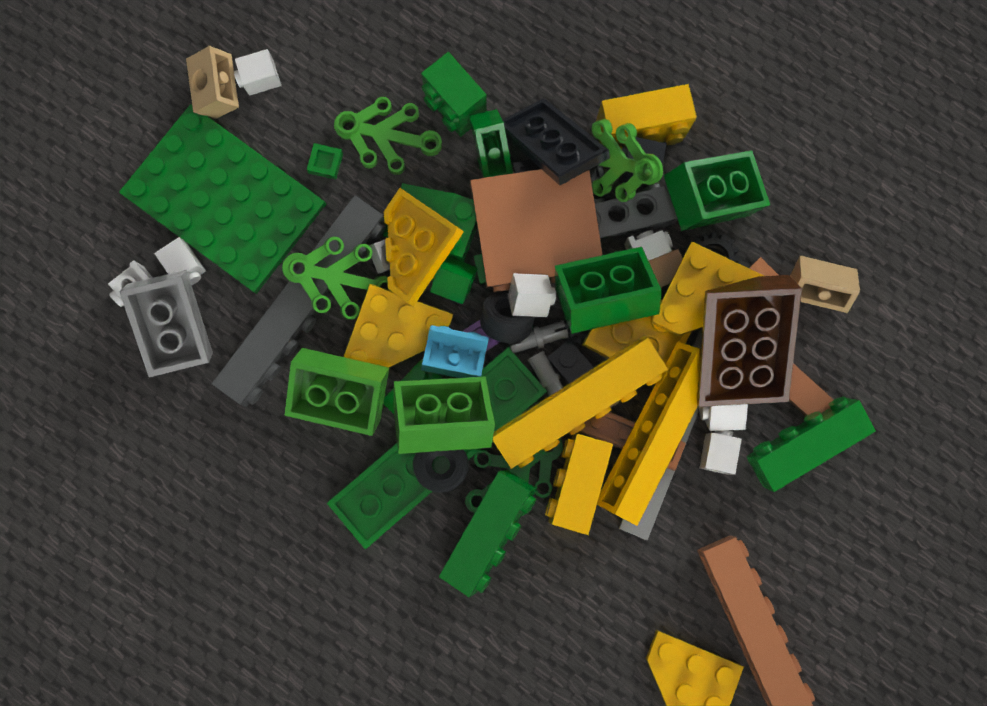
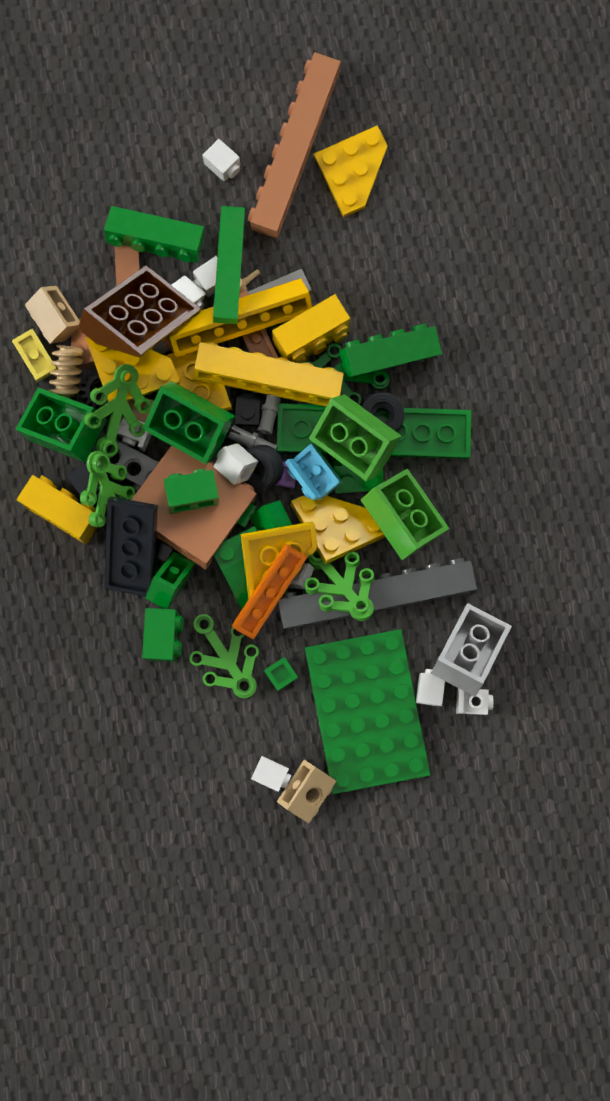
camera: 135 degrees left, 0 degrees up
(395, 213) = (269, 591): none -> orange tile
(544, 228) = (191, 491): none -> green brick
(682, 242) = (118, 407): none -> bright green plant
(682, 470) = (243, 282): none -> tan hand
(713, 473) = (229, 265): none -> green tile
(760, 244) = (66, 371): none -> tan piece
(802, 237) = (34, 355): none -> light yellow plate
(820, 575) = (222, 160): none -> white brick

